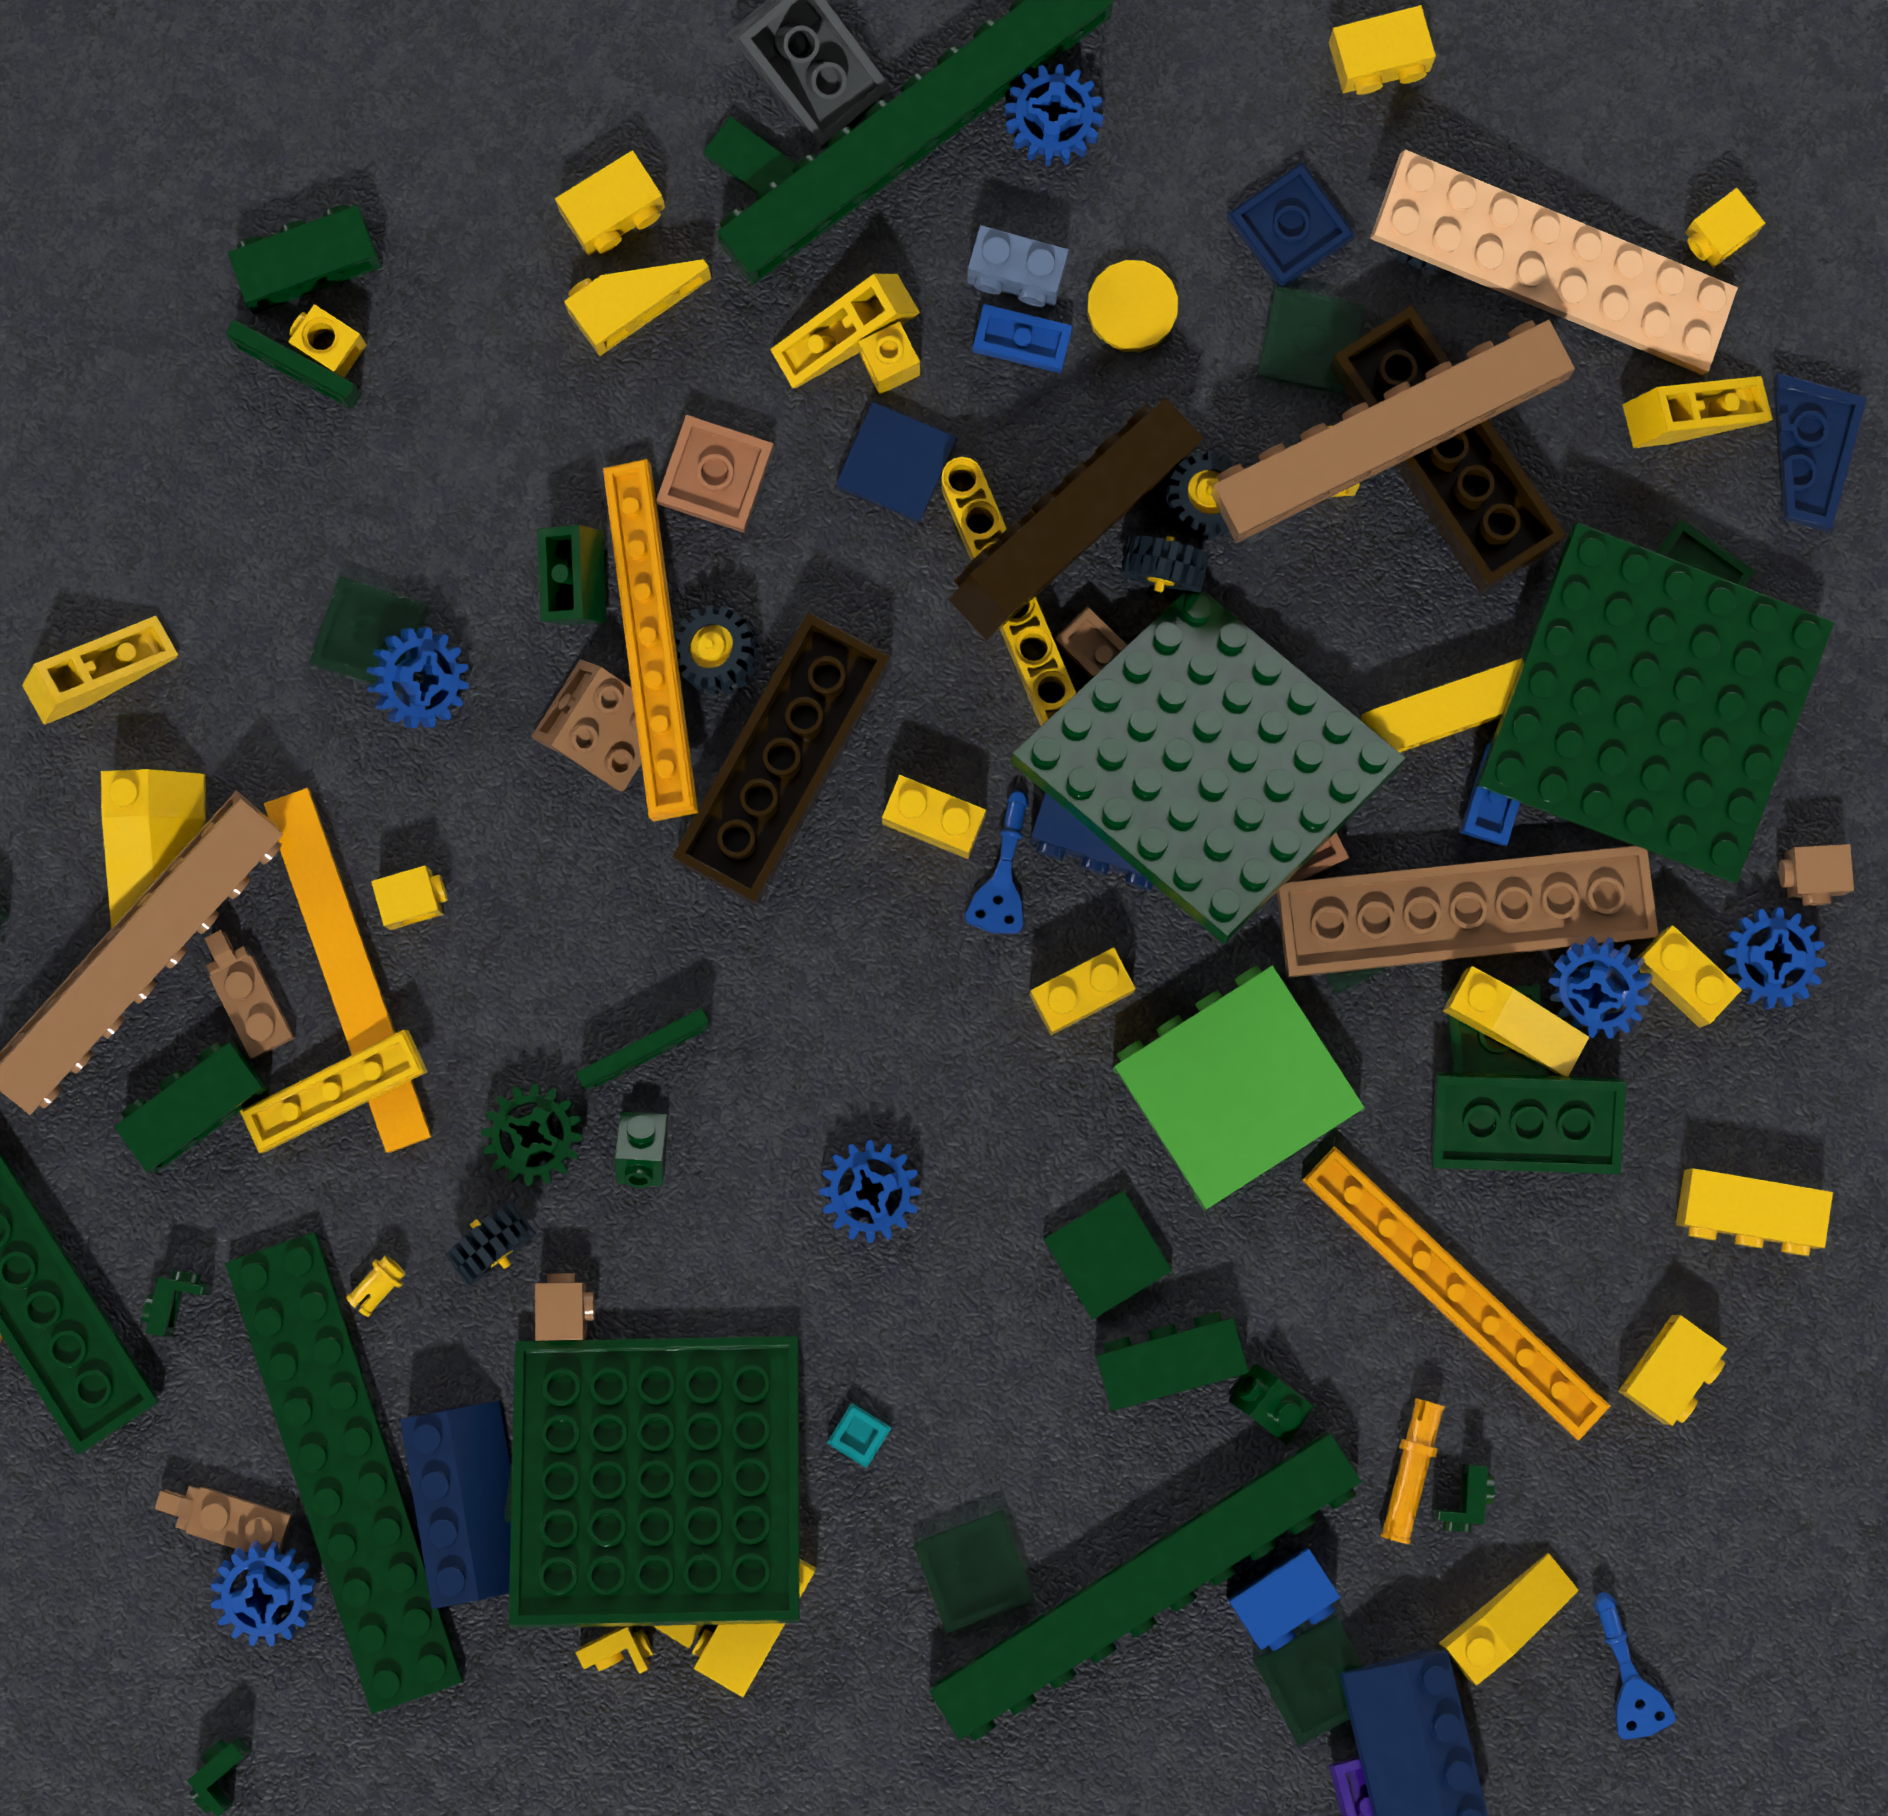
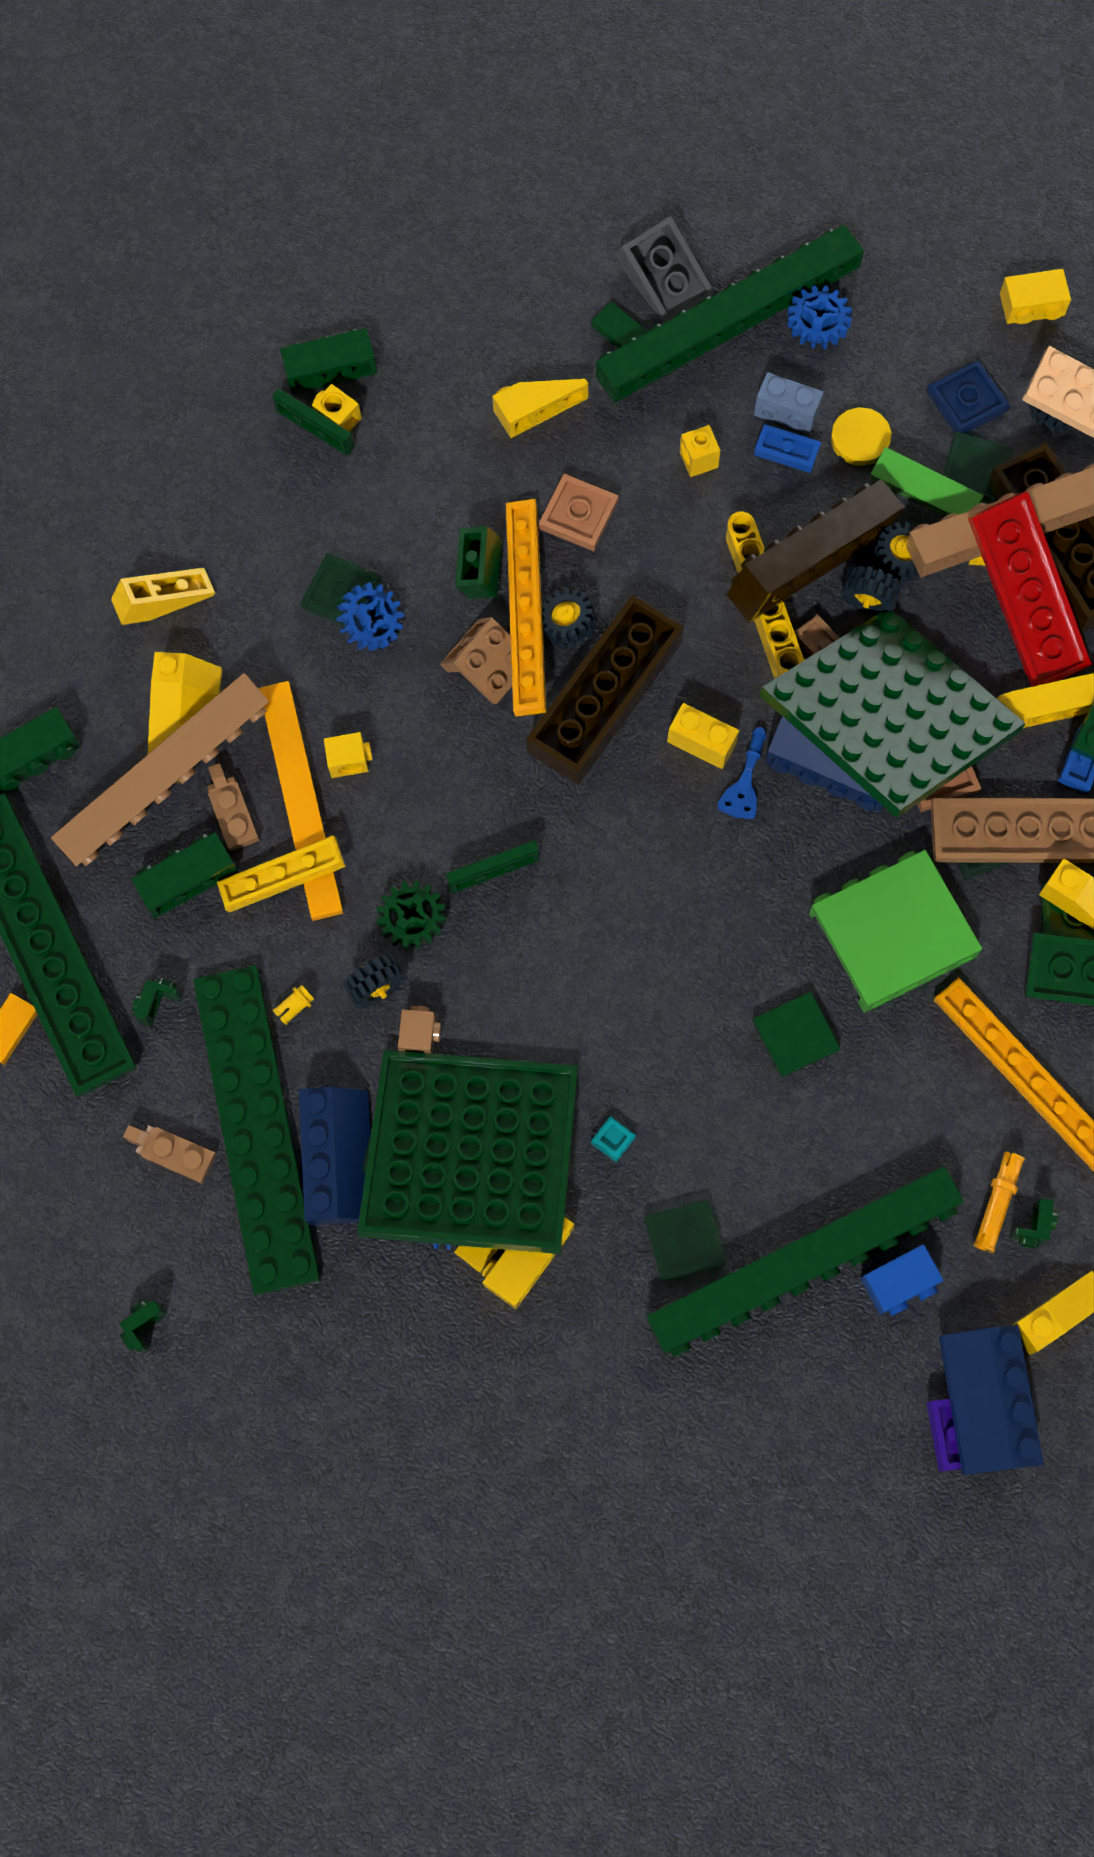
camera: 10 degrees right, 10 degrees down
(262, 1614) = (189, 1188): blue gear -> none
(607, 1649) = (423, 1266): yellow bracket -> none
(611, 204) = (528, 345): yellow brick -> none
(640, 1149) = (483, 933): dark green bracket -> none
(835, 331) = (664, 433): yellow slope -> none
(890, 1182) = (649, 972): blue gear -> none
(896, 462) = (697, 517): dark blue tile -> none
(1082, 991) = (793, 857): yellow brick -> none
(1170, 1361) = (834, 1109): dark green brick -> none
(1236, 388) = (923, 484): none -> bright green brick
(1271, 1403) = (903, 1145): dark green bracket -> none
(1307, 1679) = (914, 1341): clear green tile -> none
(1398, 553) = (1029, 590): none -> red plate

